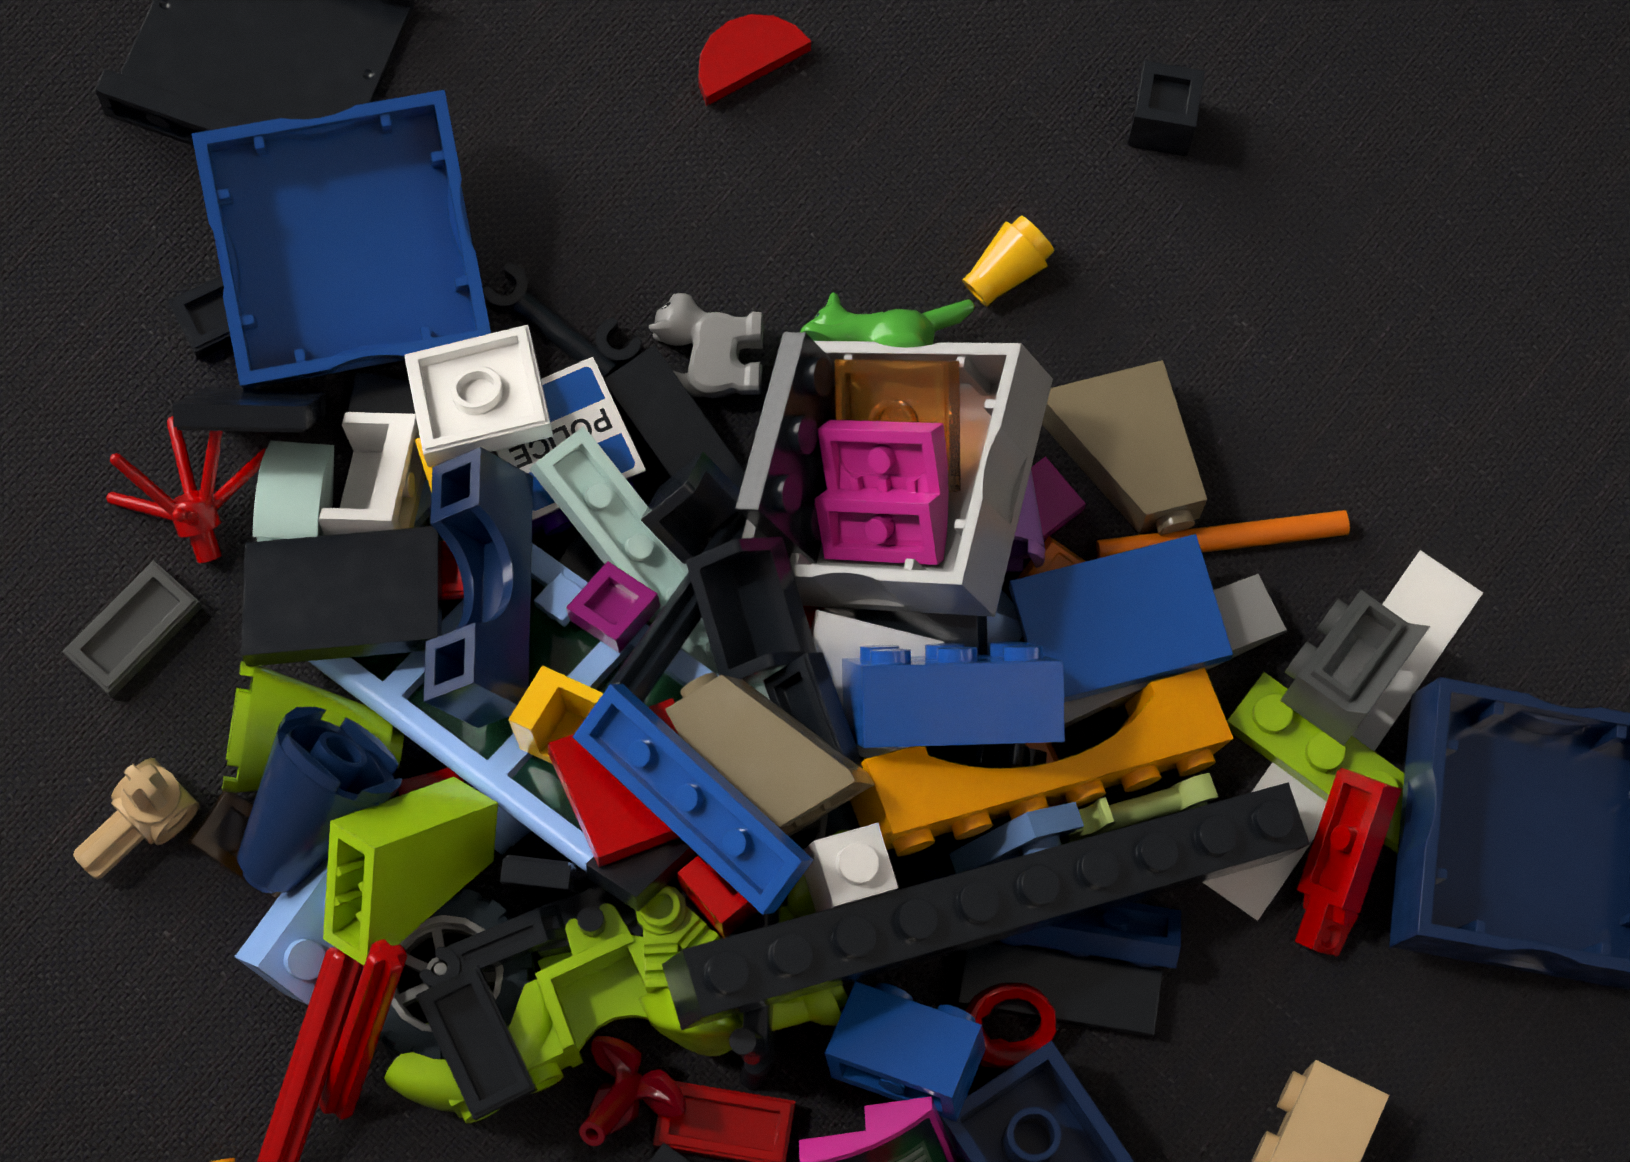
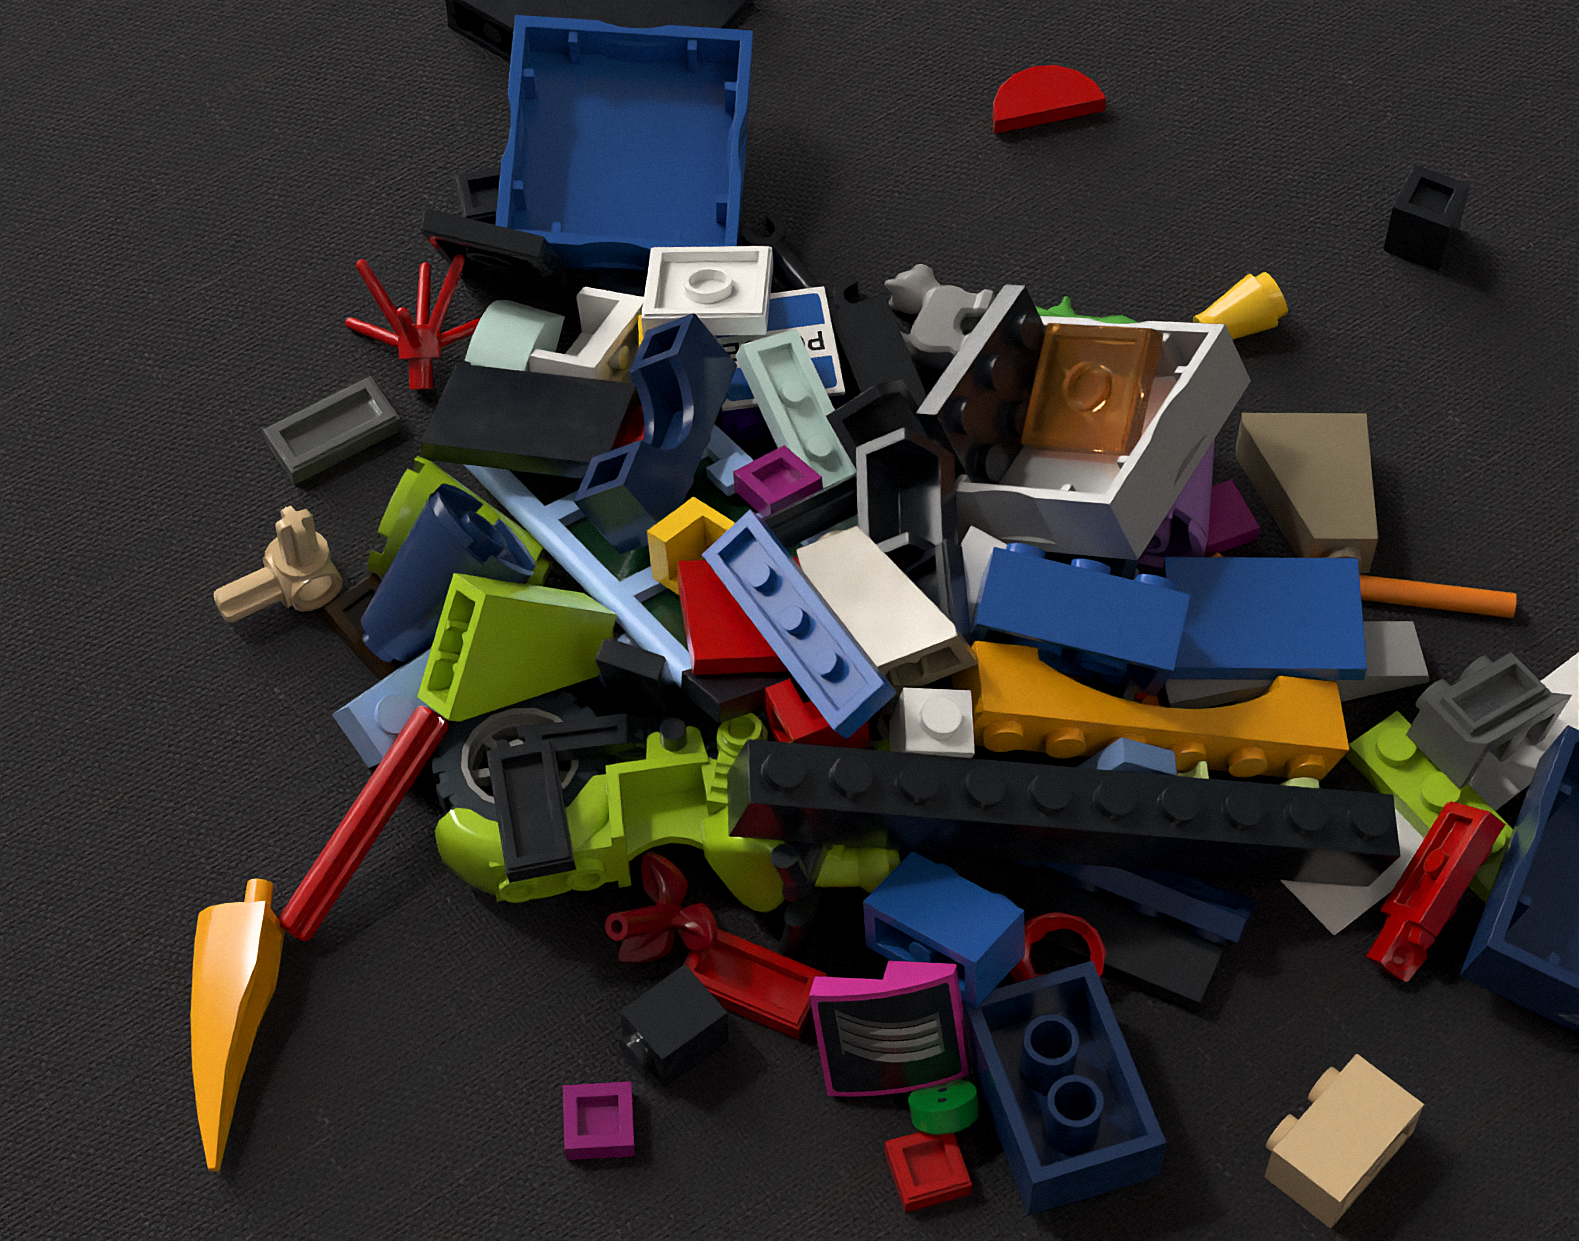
camera: 20 degrees right, 15 degrees down
(362, 1028) = (427, 777): red axle -> none
(883, 491) = (1064, 433): dark pink slope -> none

